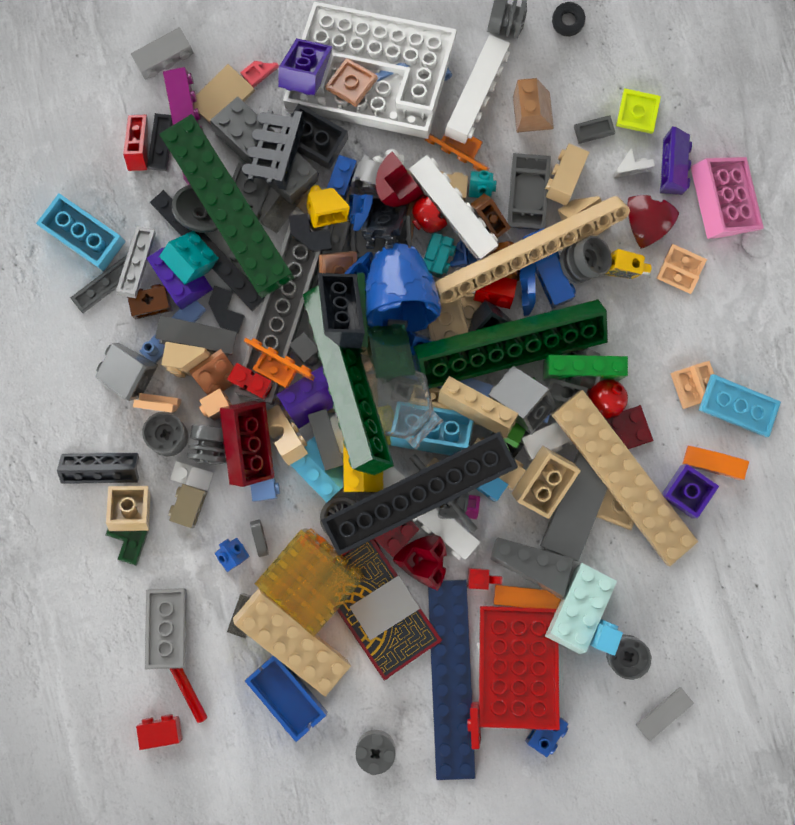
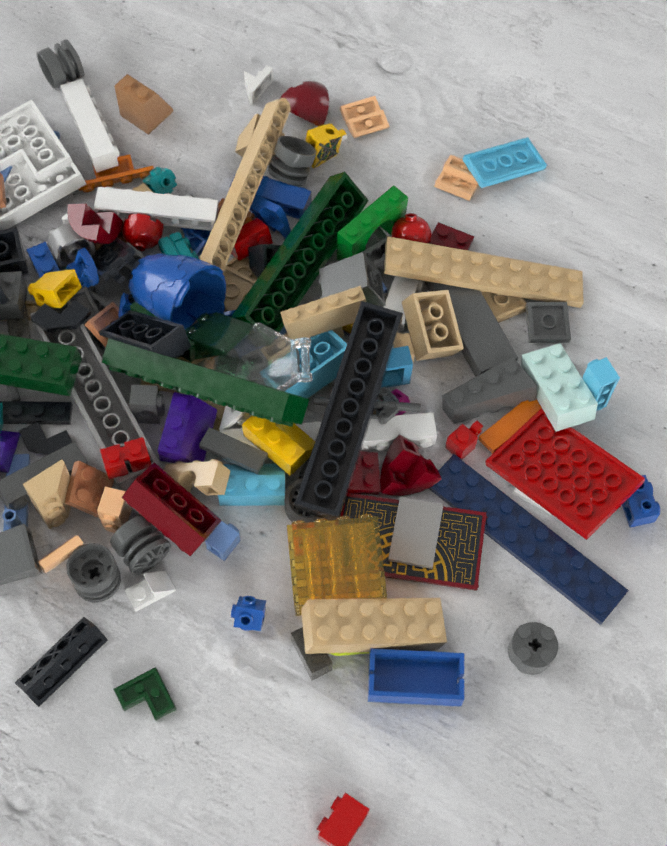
camera: 45 degrees left, 20 degrees down
(128, 508) = (122, 661): tan brick -> none
(165, 629) = (257, 731): light grey tile -> none
(187, 505) = (171, 613): dark tan brick -> none
(189, 694) = (324, 763): red axle -> none
(259, 538) = (258, 581): dark grey beam -> none
(275, 367) = (135, 424): orange bracket -> none
(473, 725) = (583, 544): red plate -> none
(491, 215) = (186, 186): reddish brown brick -> none
(527, 191) = (199, 159): dark grey slope -> none
(566, 174) = (216, 123): tan brick -> none
(568, 30) = (108, 28): black tyre -> none
(594, 129) = (203, 86): dark grey tile -> none
(630, 554) = (548, 322): none -> dark grey plate
(638, 111) = (222, 50): neon yellow plate -> none
(639, 659) = (638, 380): dark grey wheel -> none
(675, 162) = (283, 57): dark purple slope -> none
(689, 491) = (537, 240): dark purple brick -> none
(716, 462) = (532, 210): orange slope -> none
(726, 196) = (342, 50): bright pink slope -> none

